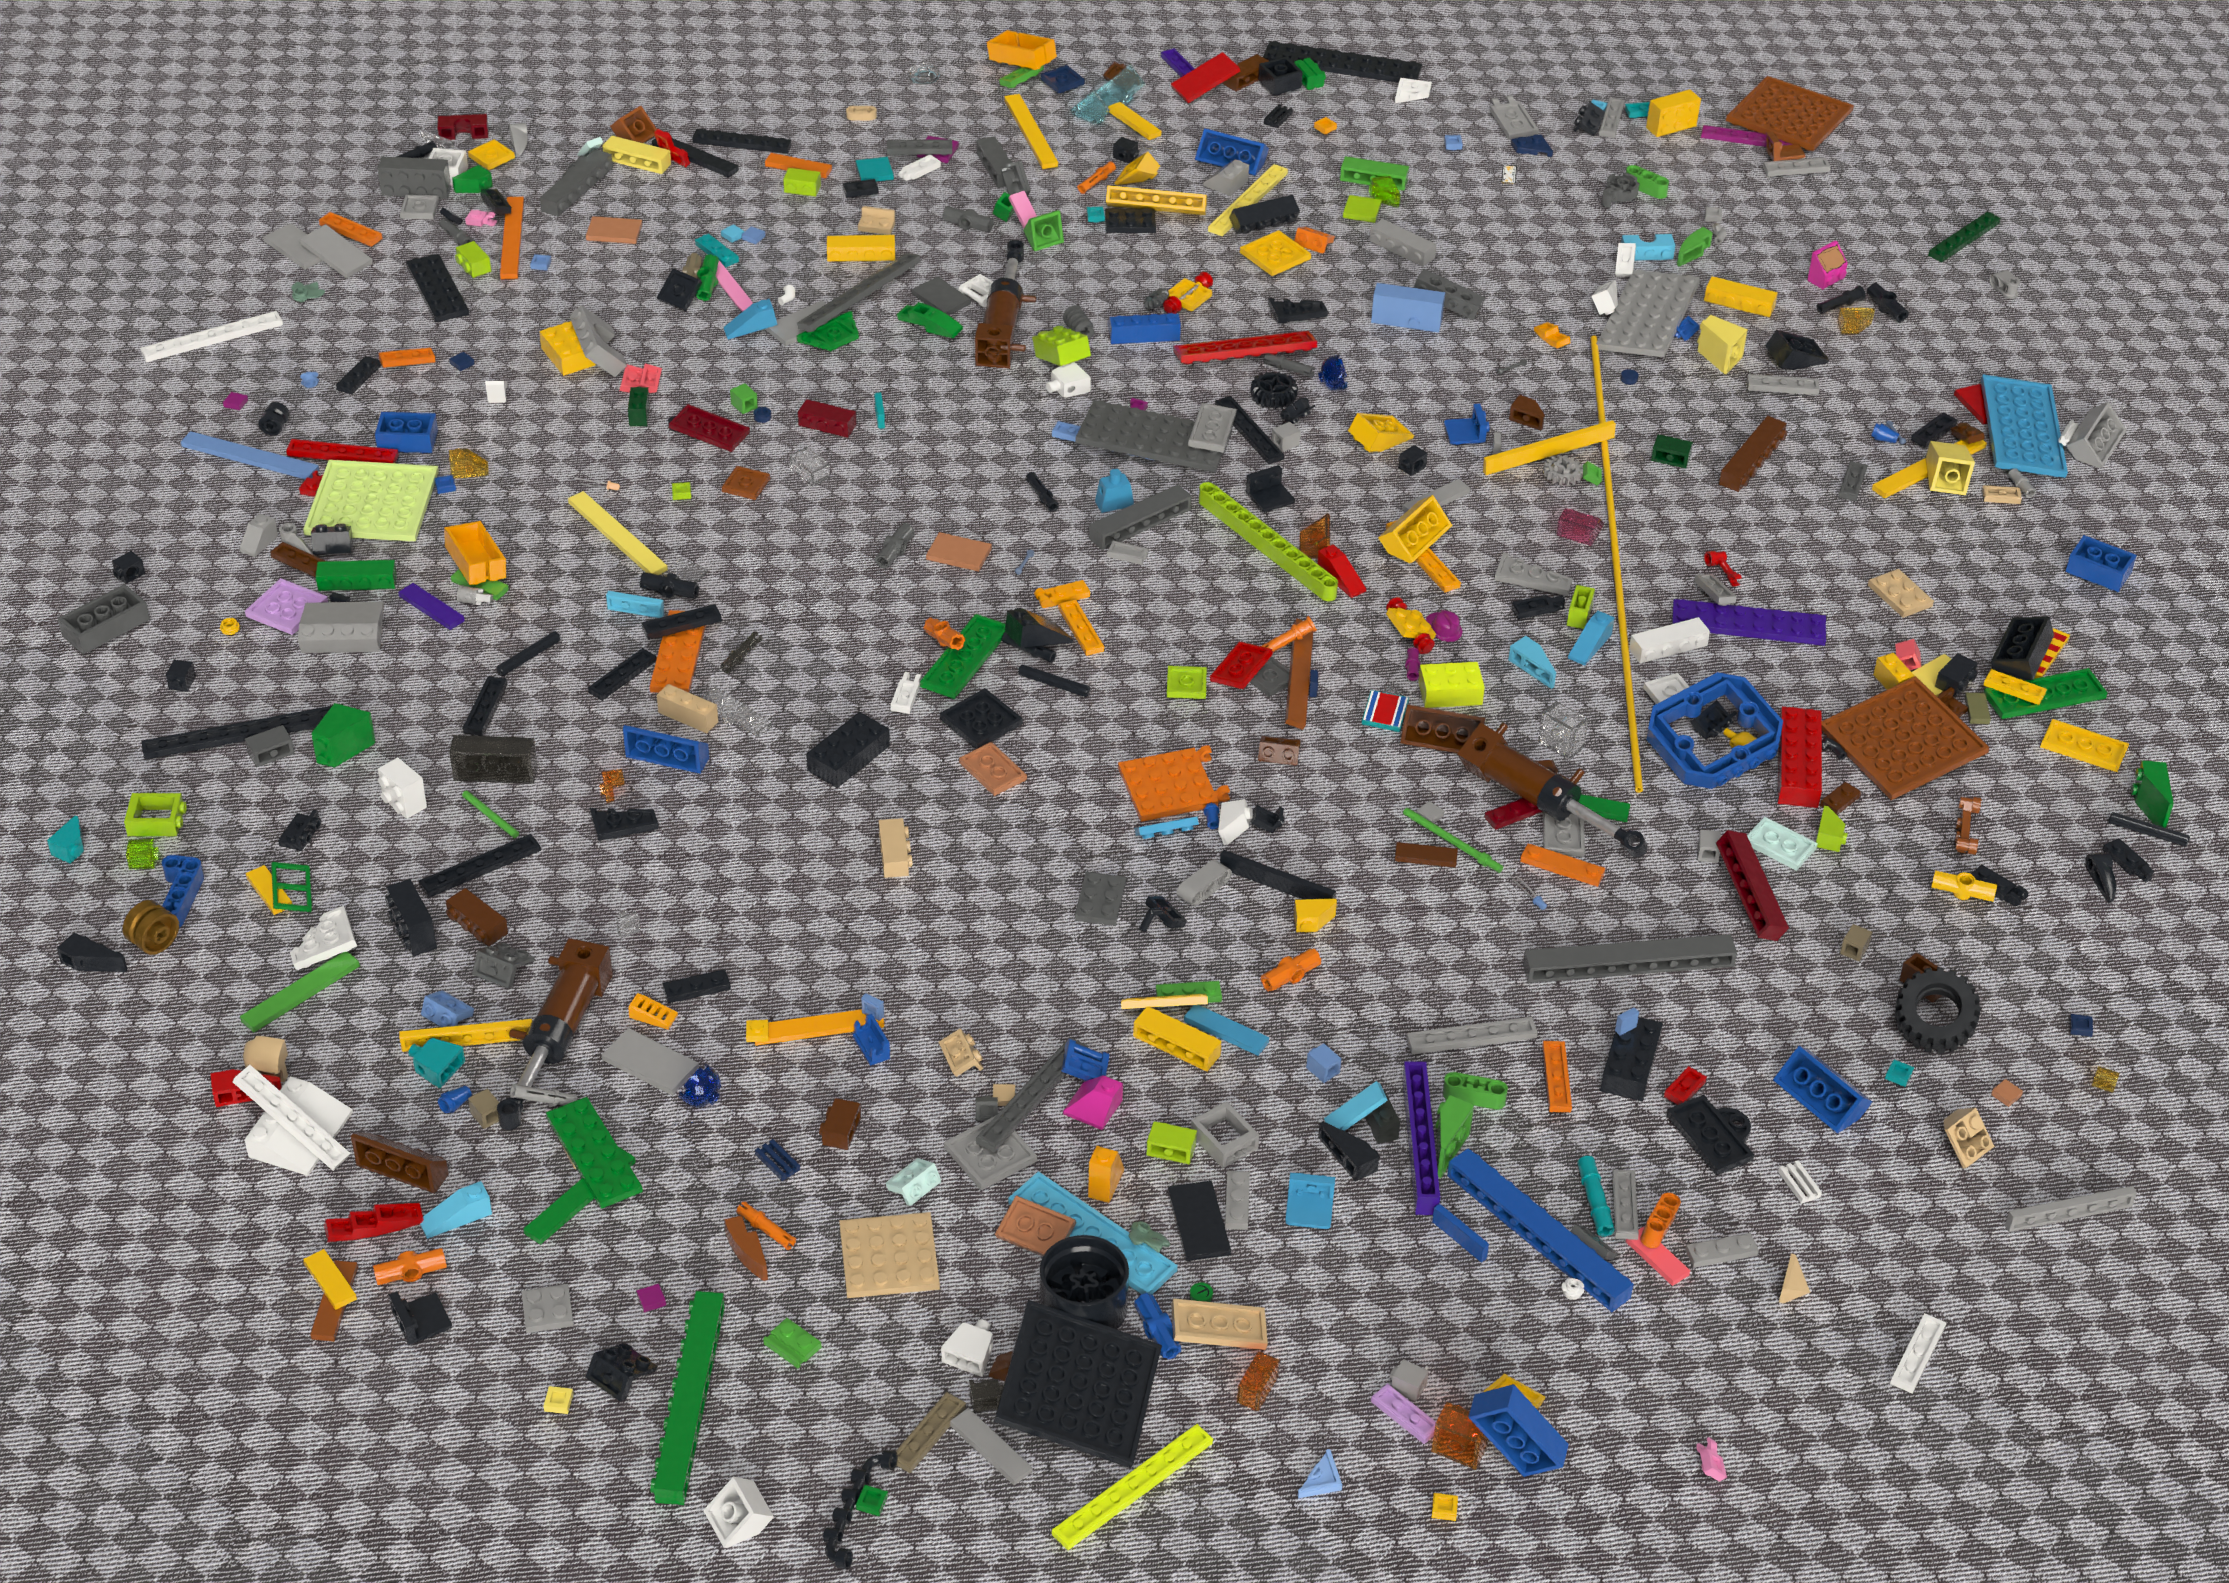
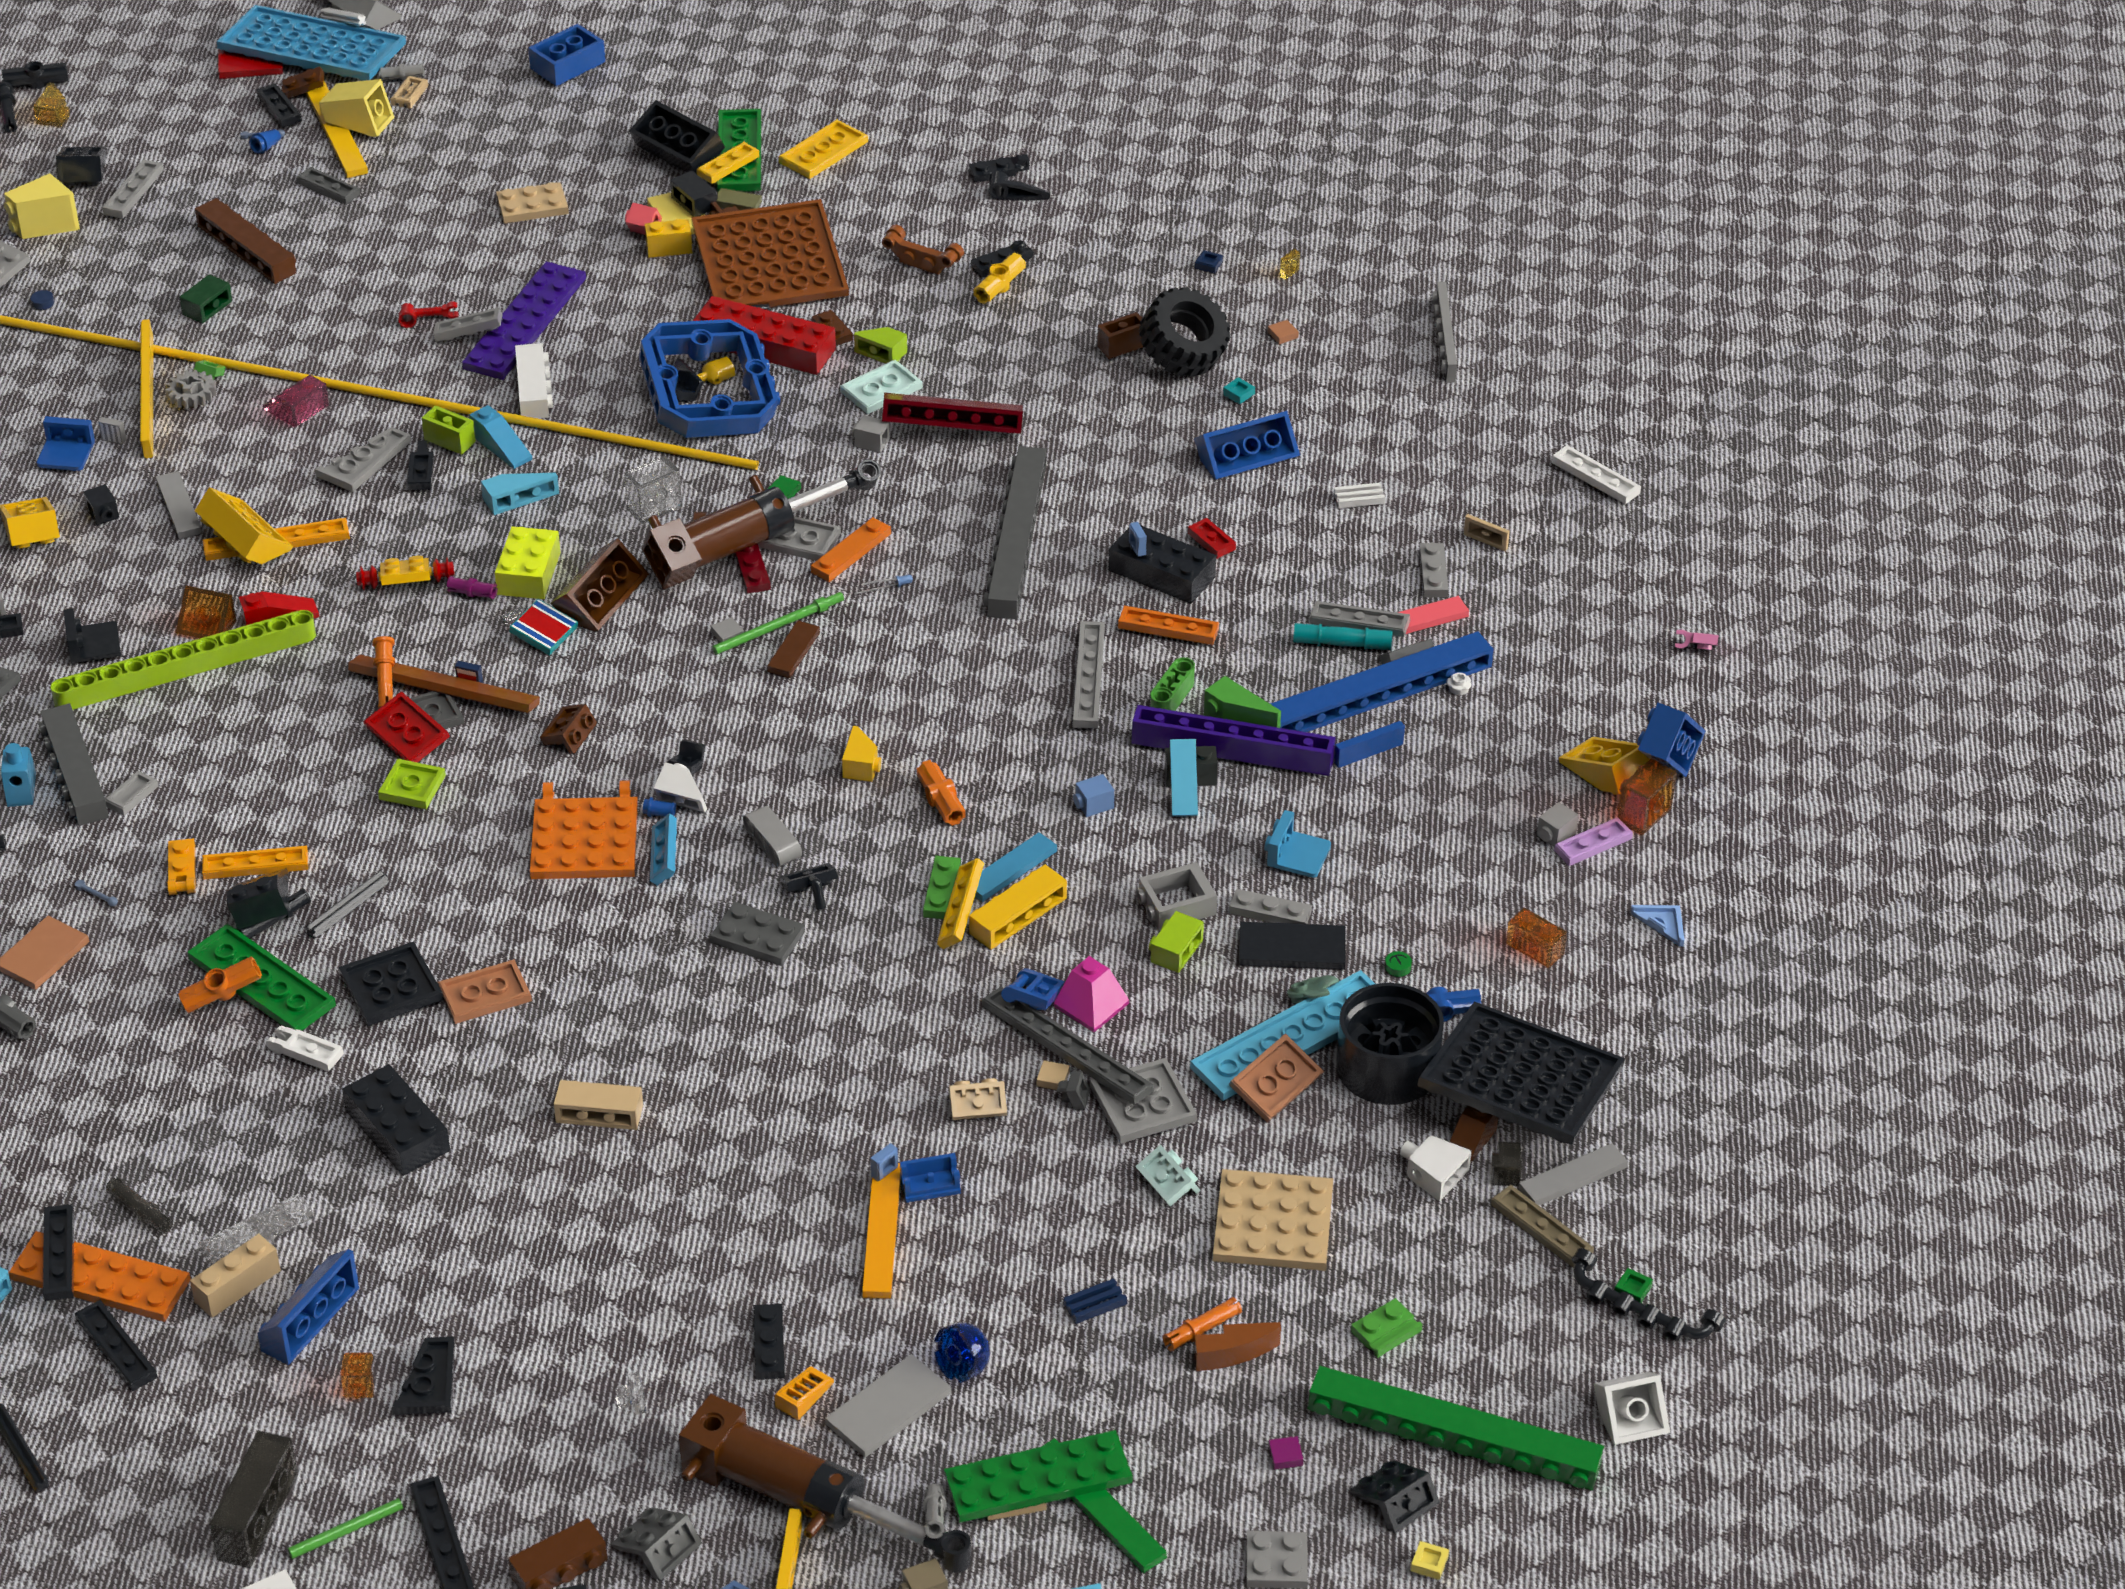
camera: 75 degrees left, 0 degrees up
(485, 706) = (114, 1508): black plate -> none
(756, 1030) = (879, 1284): yellow plate -> none
(840, 1123) = (1060, 1227): reddish brown brick -> none
(1104, 1173) = (1218, 999): light orange slope -> none
(1132, 1487) = (1649, 1070): neon yellow tile -> none
(1219, 1324) = (1454, 951): tan plate -> none
(1274, 878) = (792, 772): black tile -> none
(1351, 1152) = (1232, 802): black slope -> none
(1444, 1506) = (1716, 839): yellow tile -> none
(1445, 625) = (412, 543): magenta piece -> none
(1527, 412) = (67, 391): reddish brown slope -> none
(1660, 1220) = (1395, 594): orange beam -> none
(1665, 687) = (616, 402): white plate -> none
(1713, 1133) = (1281, 534): black plate -> none
(1856, 942) = (1052, 370): dark tan brick -> none
(1967, 1135) = (1335, 369): tan slope -> none
(2149, 829) = (961, 143): black axle -> none
(2153, 791) = (929, 118): green slope -> none

